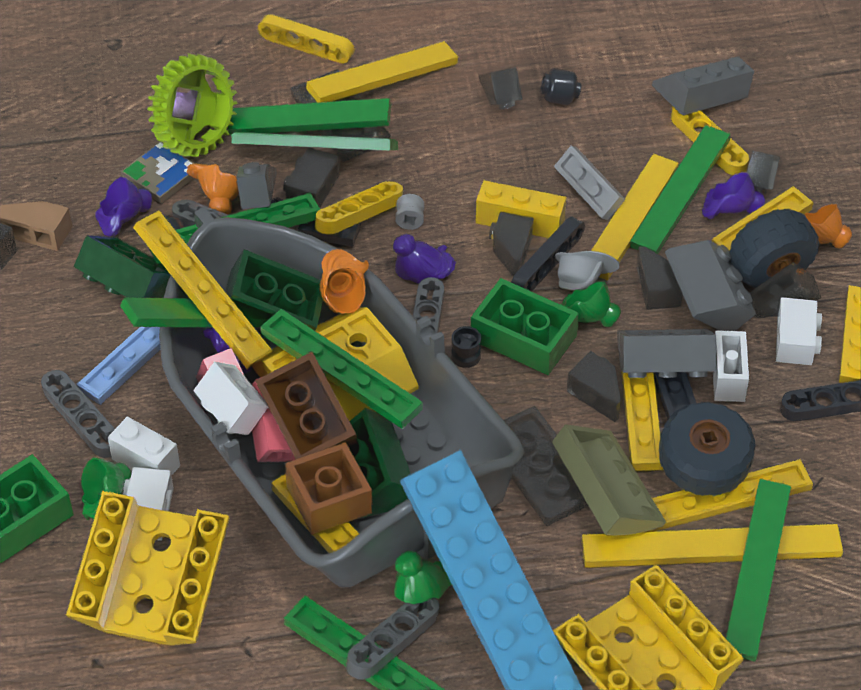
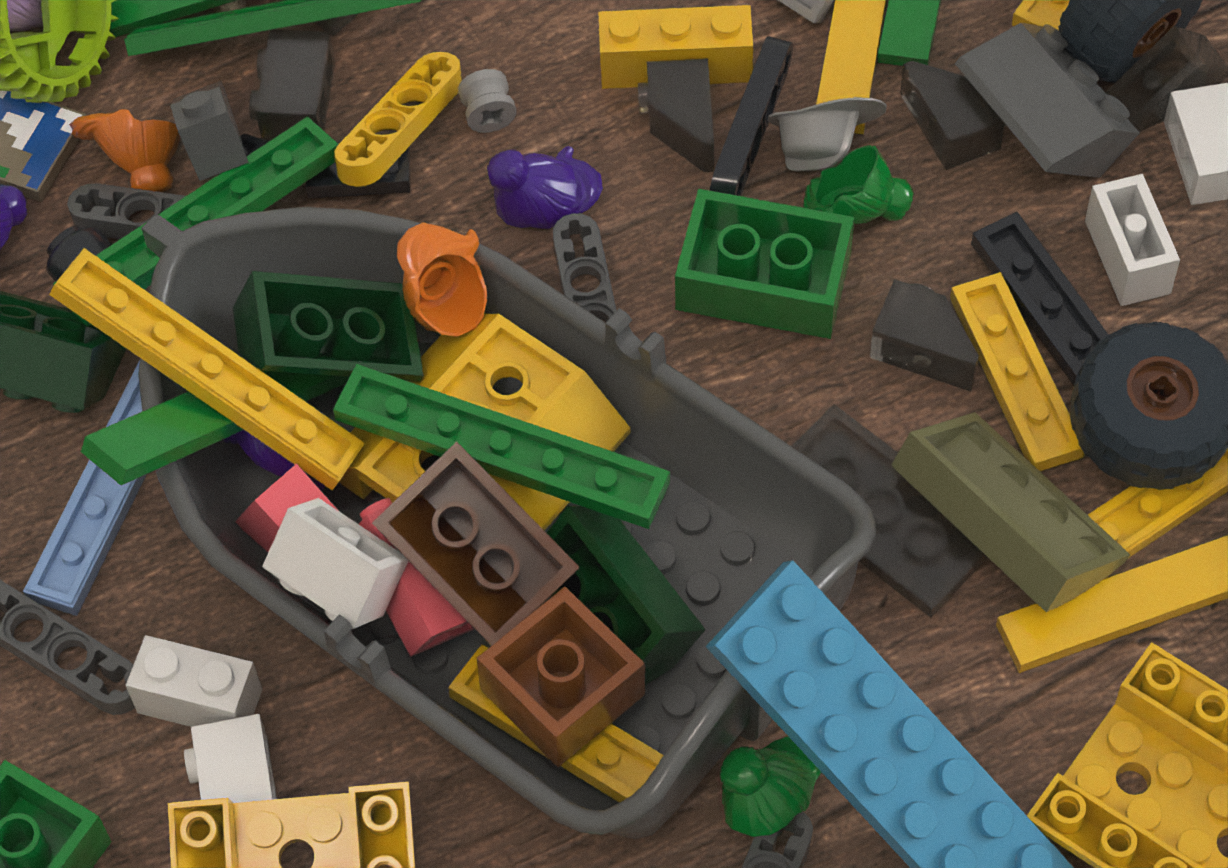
camera: 15 degrees left, 10 degrees up
(101, 476) = (145, 775): green hair -> none
(466, 347) = (680, 321): black wheel -> none
(667, 352) = (1022, 244): dark grey slope -> none

